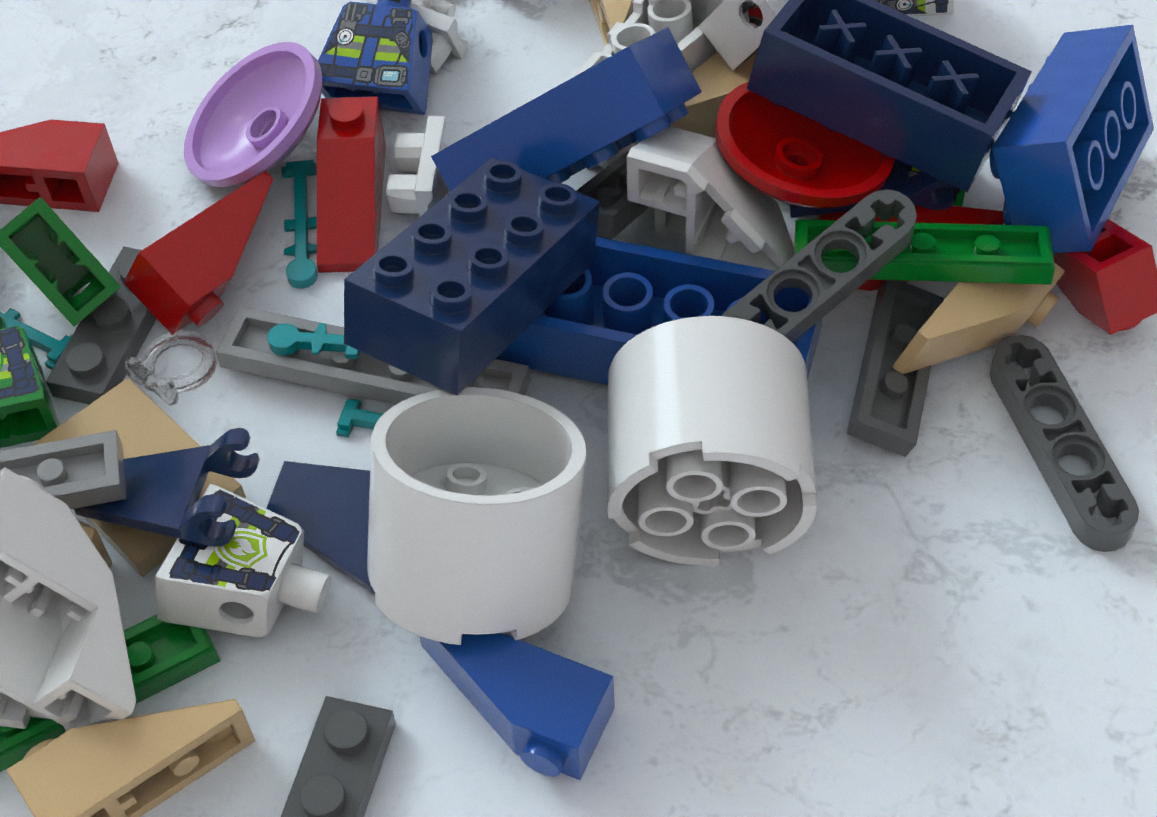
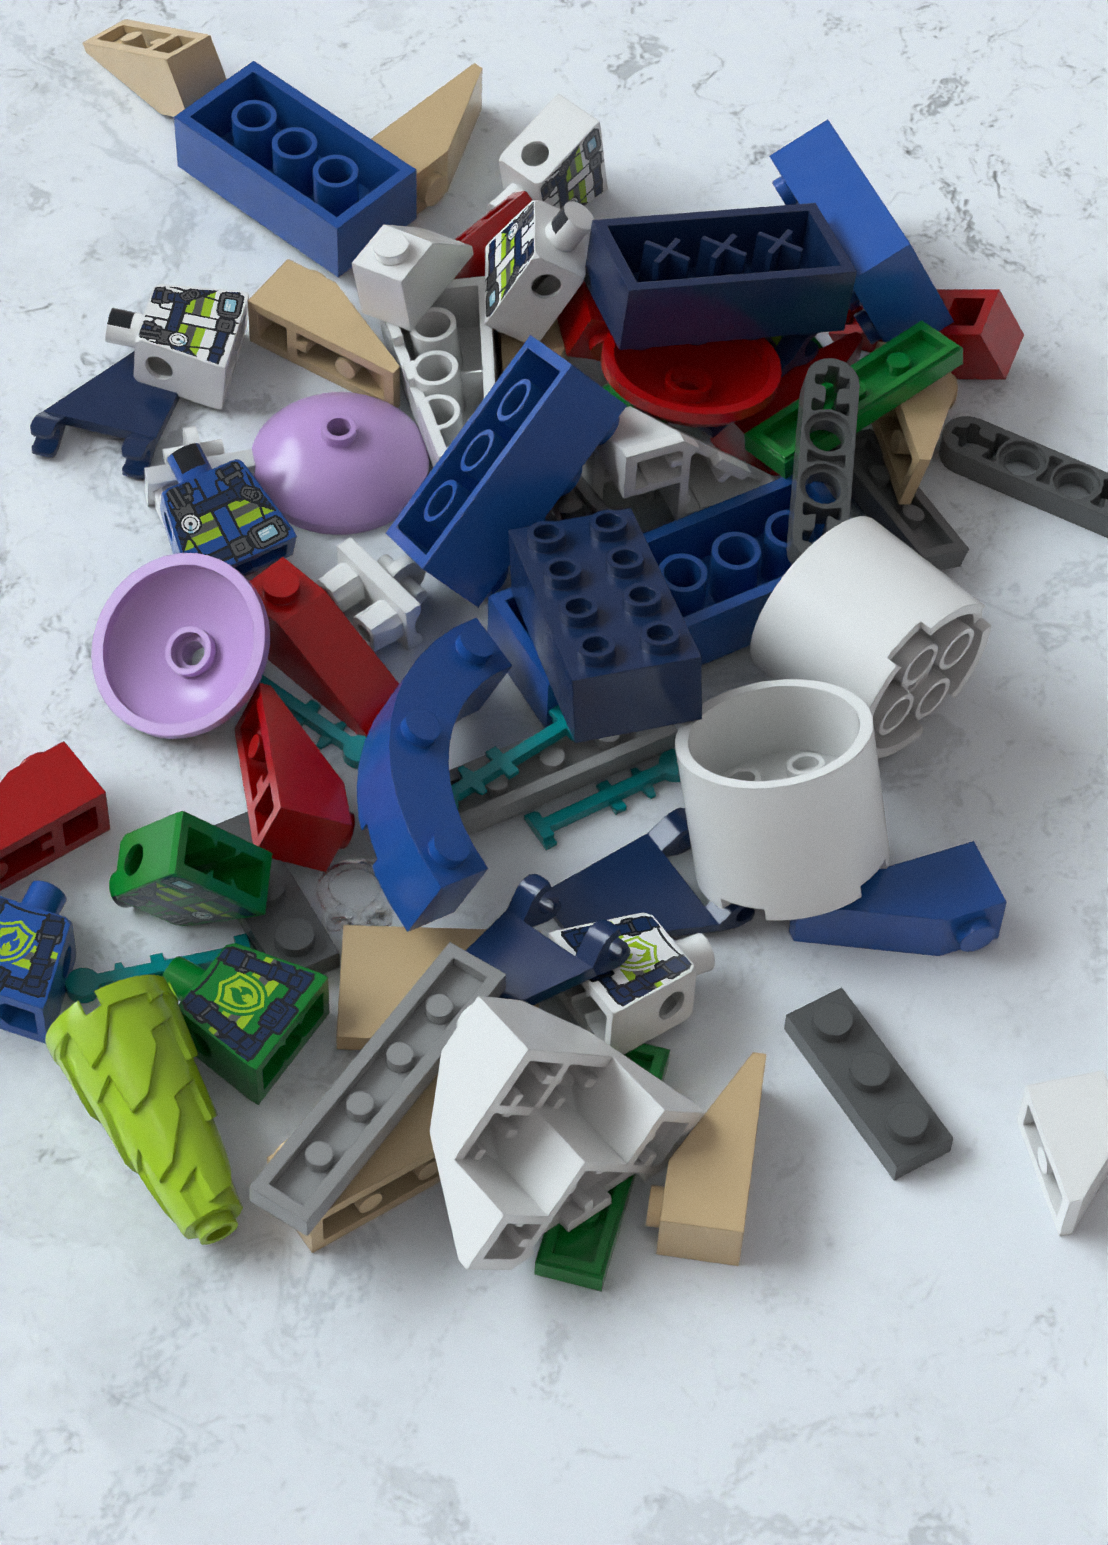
camera: 50 degrees left, 0 degrees up
(253, 295) = (405, 782): none -> blue brick
(518, 64) = (340, 462): none -> lavender dish

